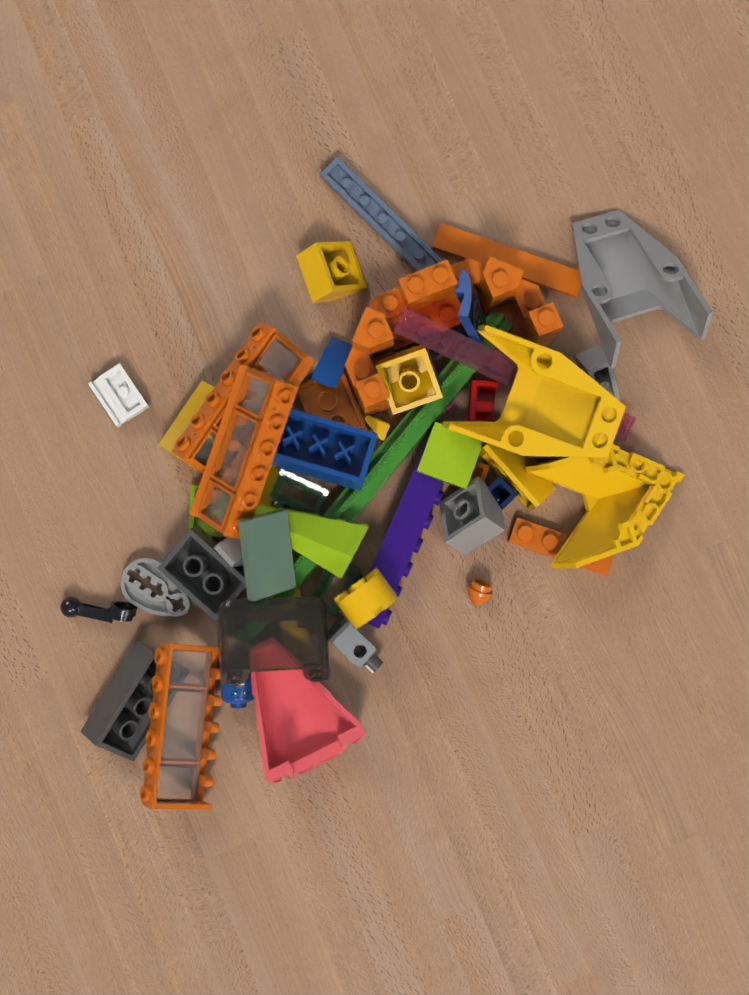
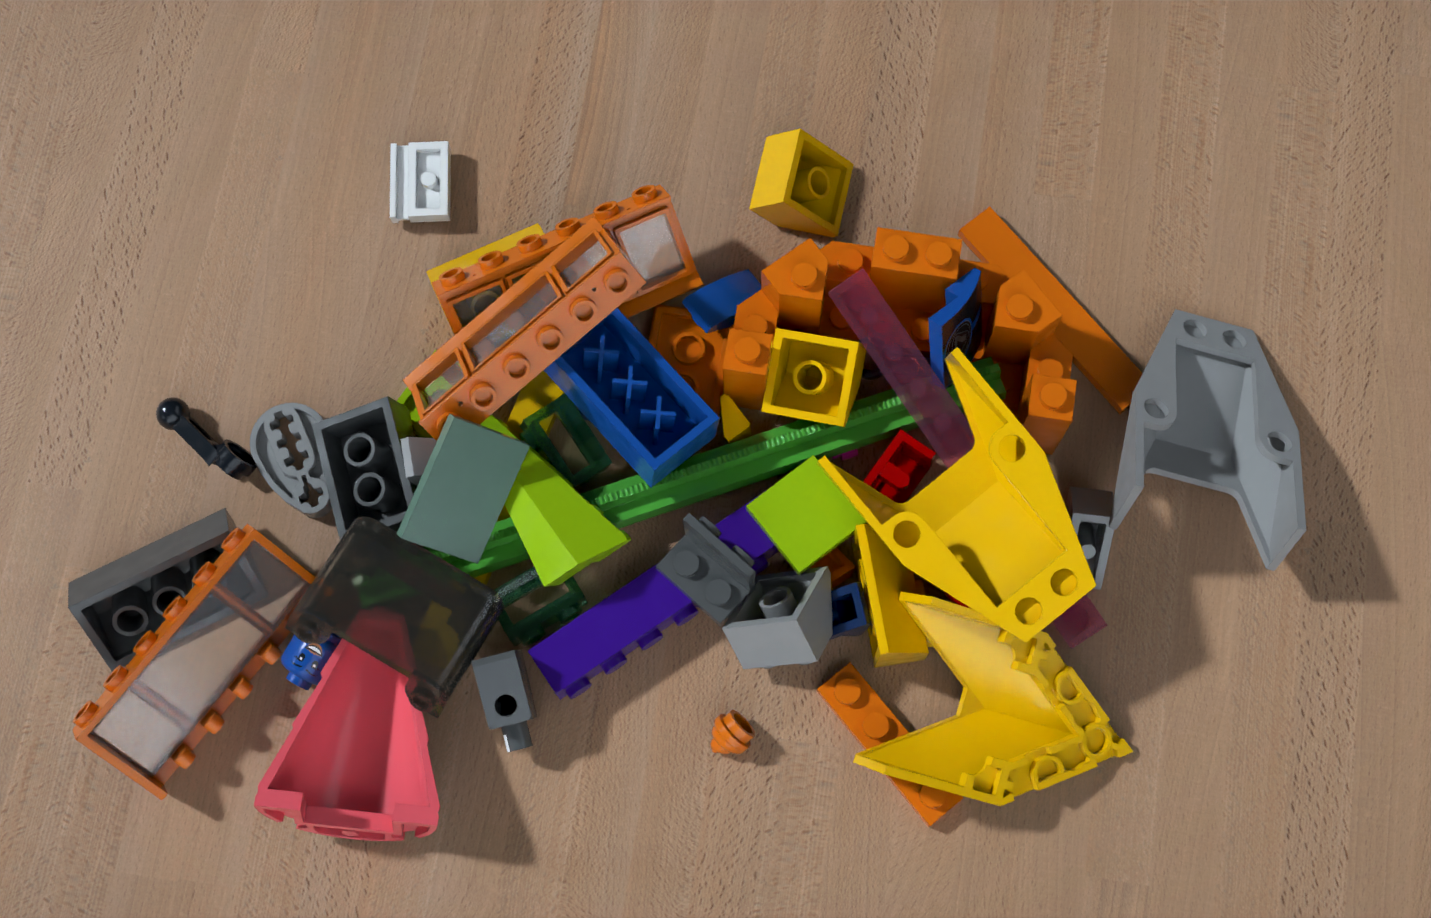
camera: 40 degrees right, 10 degrees down
(366, 598) = (559, 634): yellow brick -> none
(379, 216) = (909, 143): sand blue plate -> none
(420, 517) = (709, 570): none -> dark grey bracket

